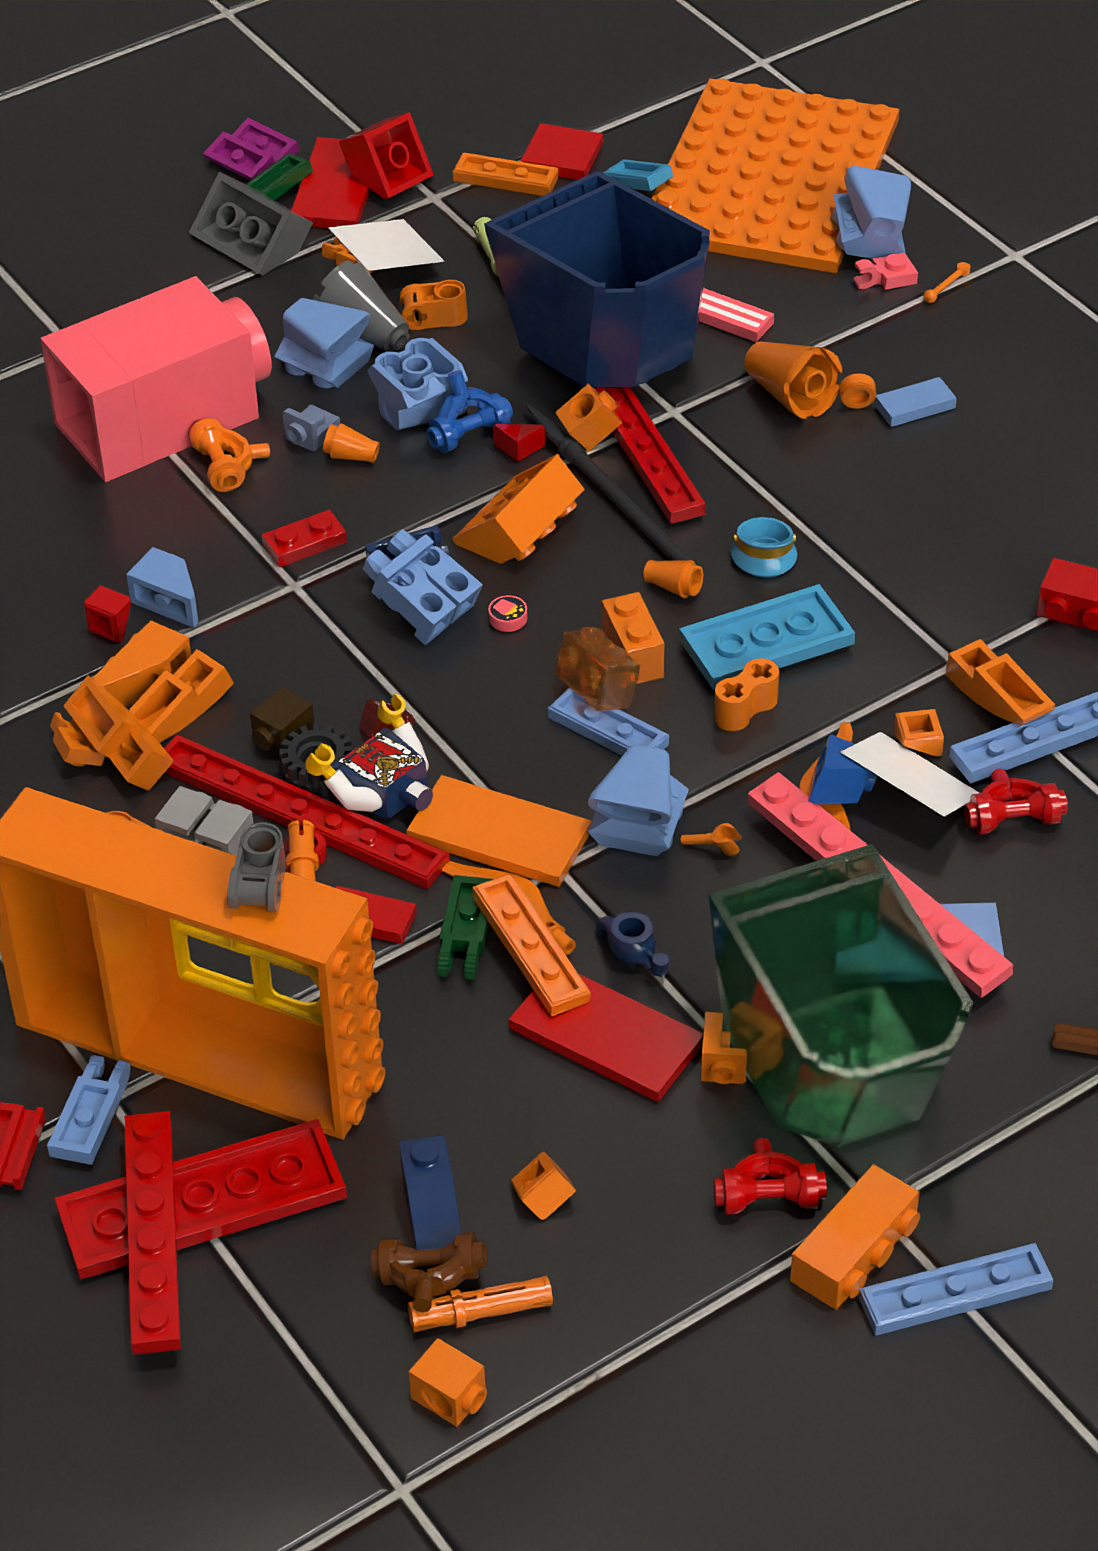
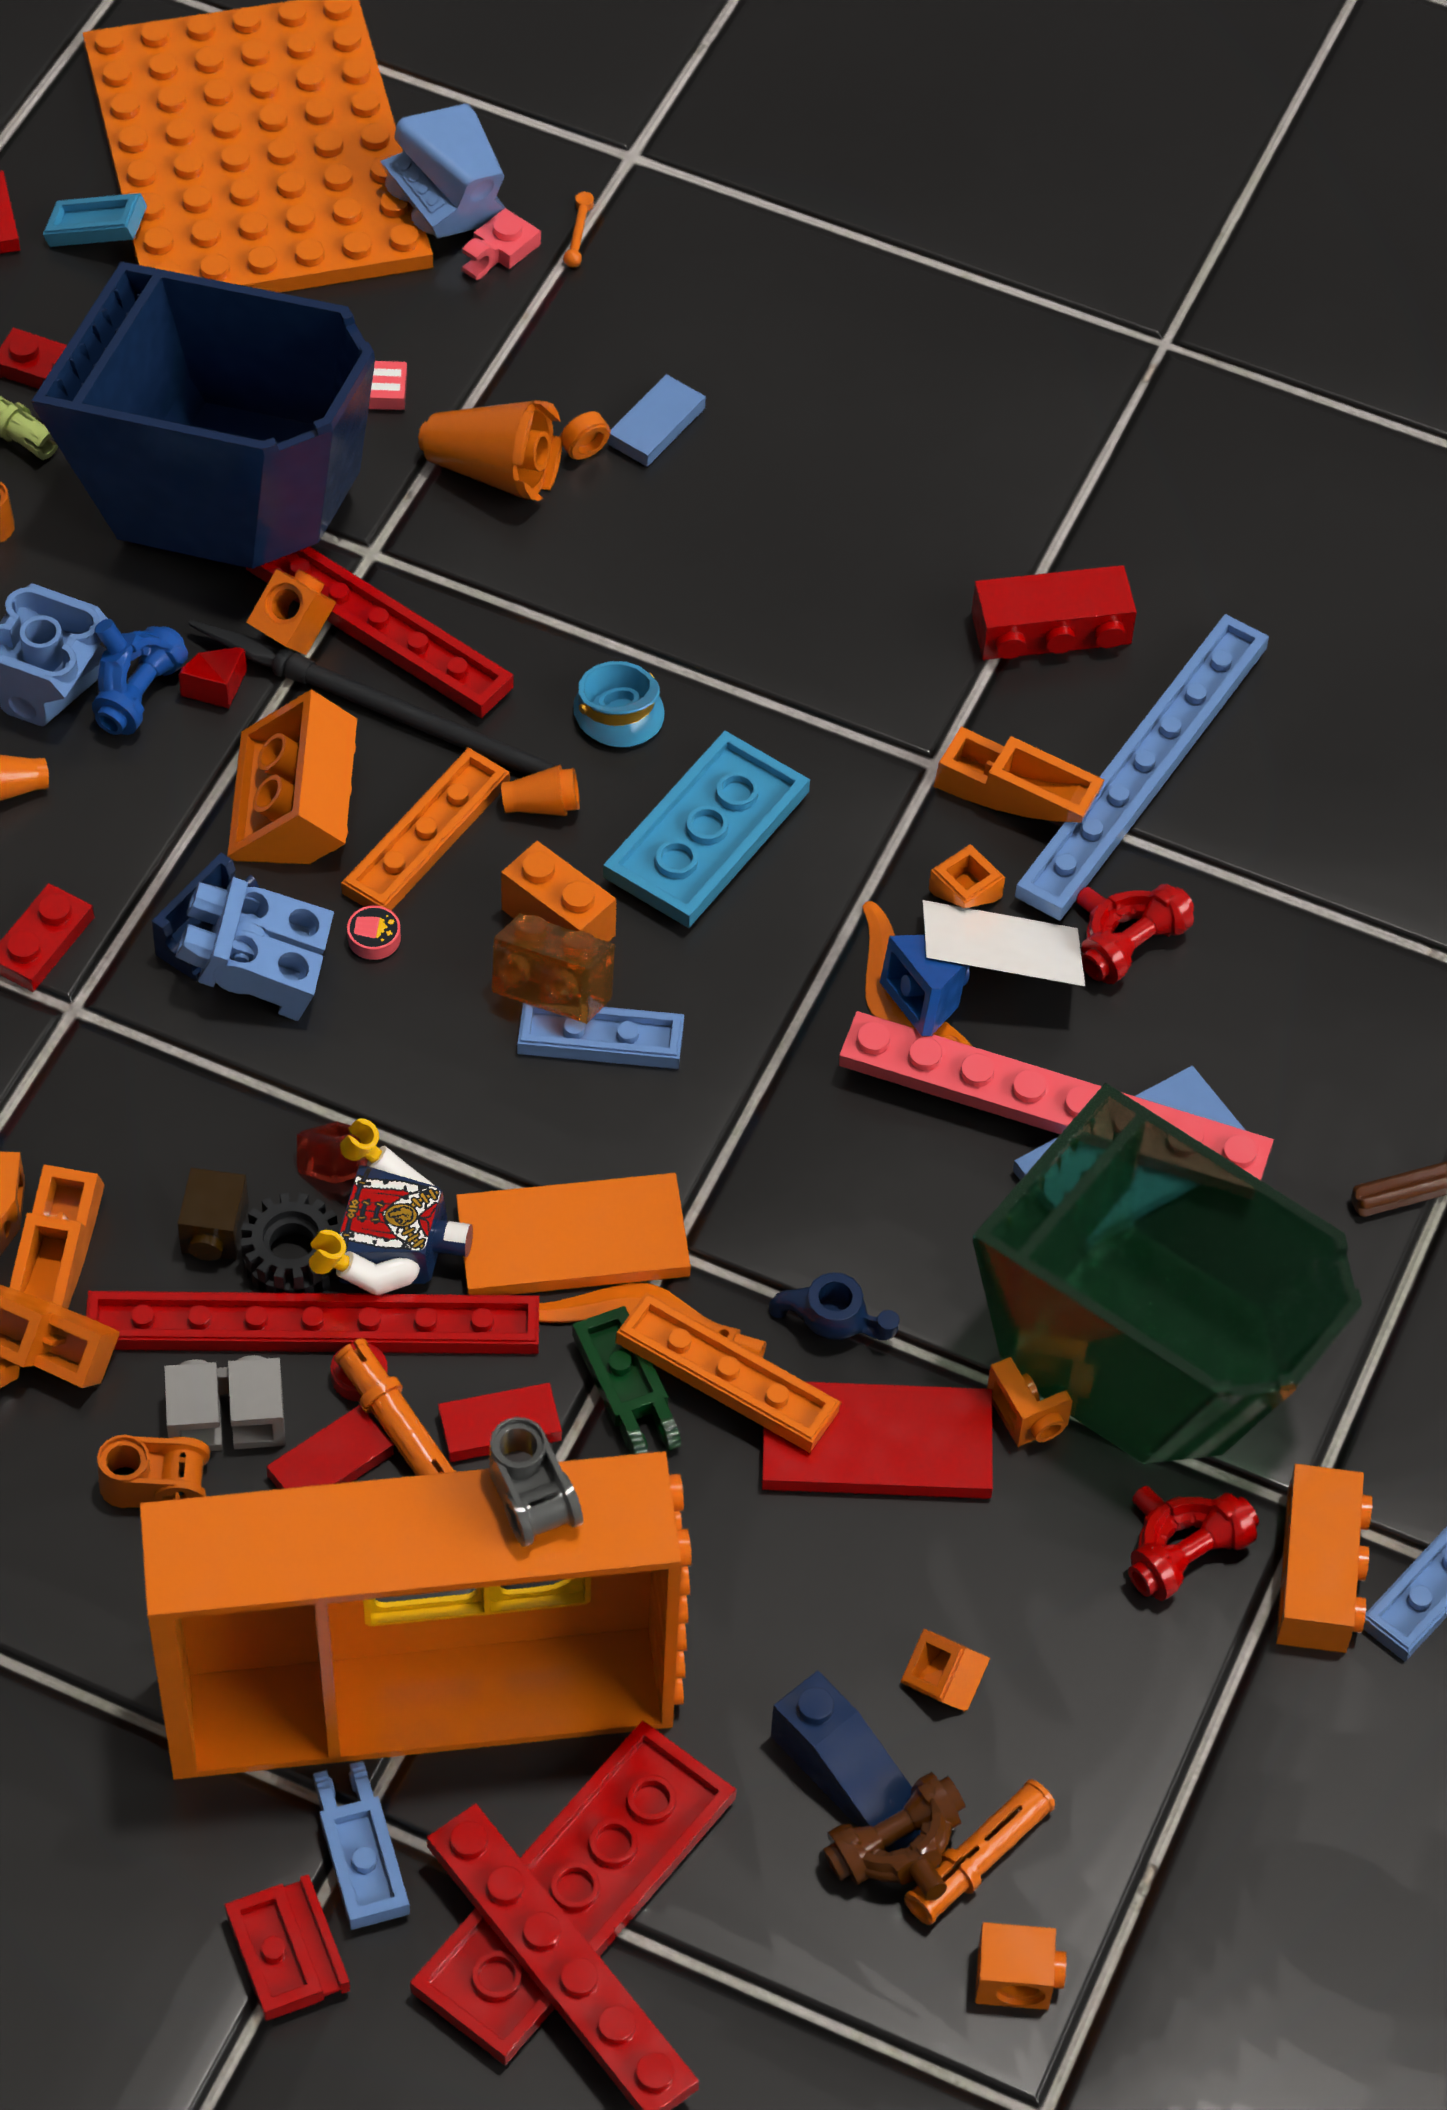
camera: 35 degrees left, 10 degrees up
(584, 572) = (426, 832): none -> orange tile
(638, 803) = (720, 1126): medium blue piece -> none
(721, 836) = (833, 1127): orange hand -> none
(746, 694) = (739, 921): orange axle -> none

